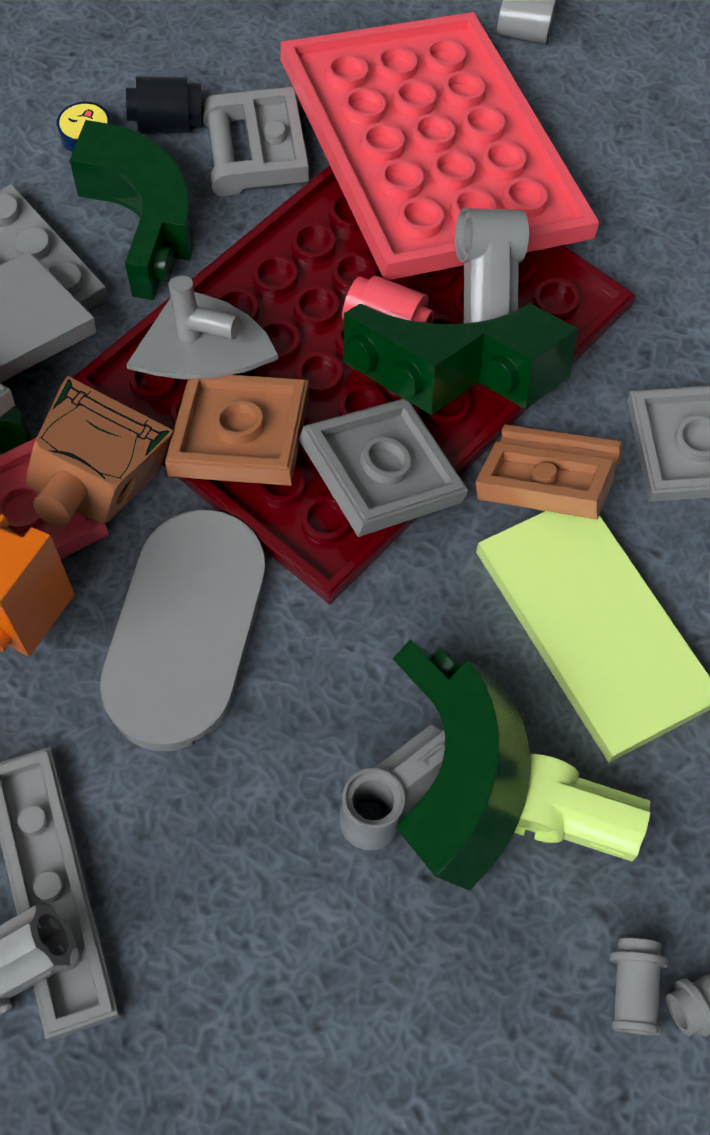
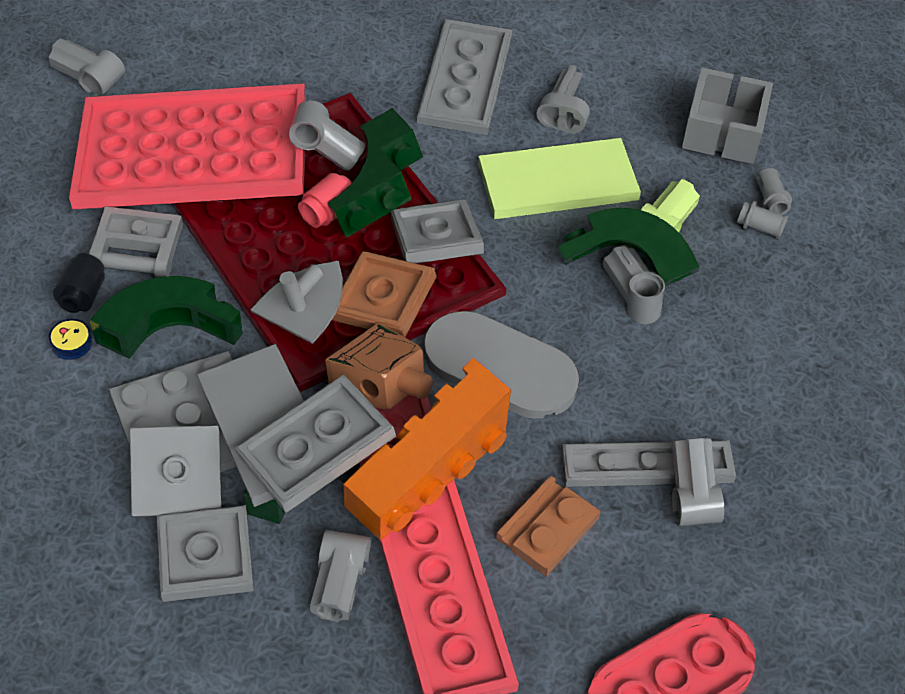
camera: 75 degrees left, 10 degrees down
(550, 471) = (463, 162): nougat plate -> none

